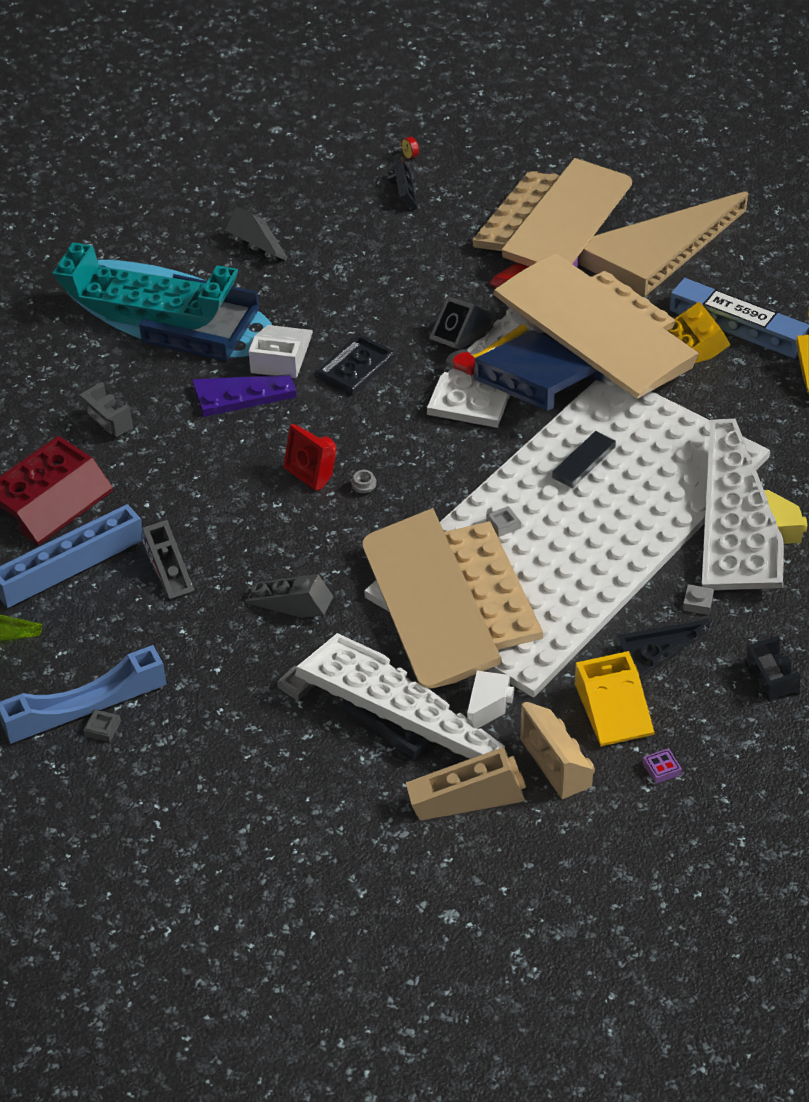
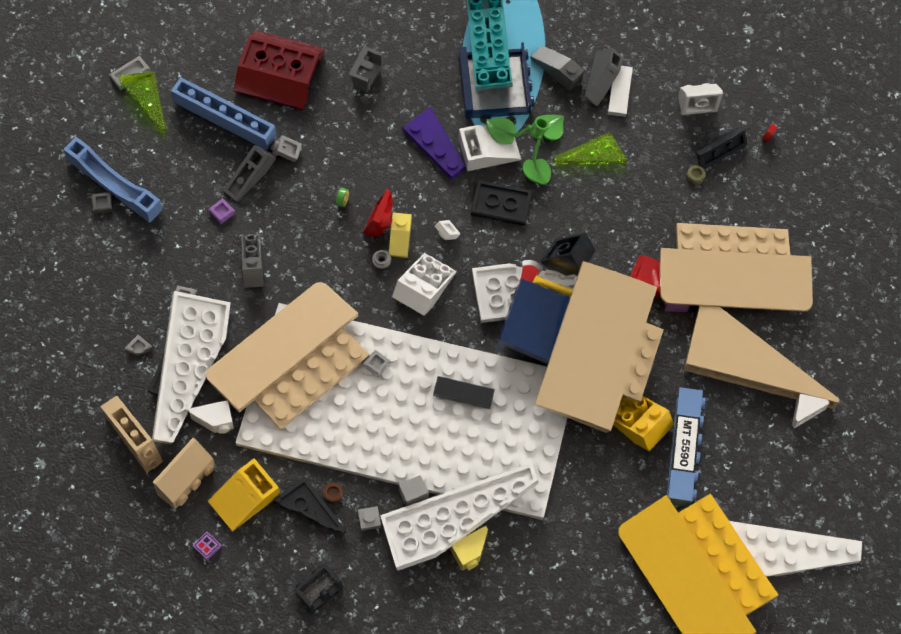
camera: 60 degrees right, 20 degrees up
(158, 513) = (286, 148): none -> light grey bracket
(198, 608) = (221, 211): none -> medium lavender tile
(230, 254) = (560, 67): none -> dark grey slope
(260, 487) = (342, 197): none -> bright green tile
(289, 236) = (620, 92): none -> white tile
(297, 294) = (549, 126): none -> bright green plant
(337, 176) = (699, 98): none -> white slope
(338, 750) = (138, 346): none -> light grey tile
(342, 275) = (599, 150): none -> clear neon green wing
(349, 453) = (400, 235): none -> light yellow slope
(364, 415) = (447, 230): none -> white plate
(420, 214) = (696, 174): none -> olive tile
(421, 455) = (423, 283): none -> white slope
(647, 620) = (333, 493): none -> reddish brown tile
(685, 545) = (413, 490): none -> light grey panel
(739, 222) = (807, 408): none -> white slope

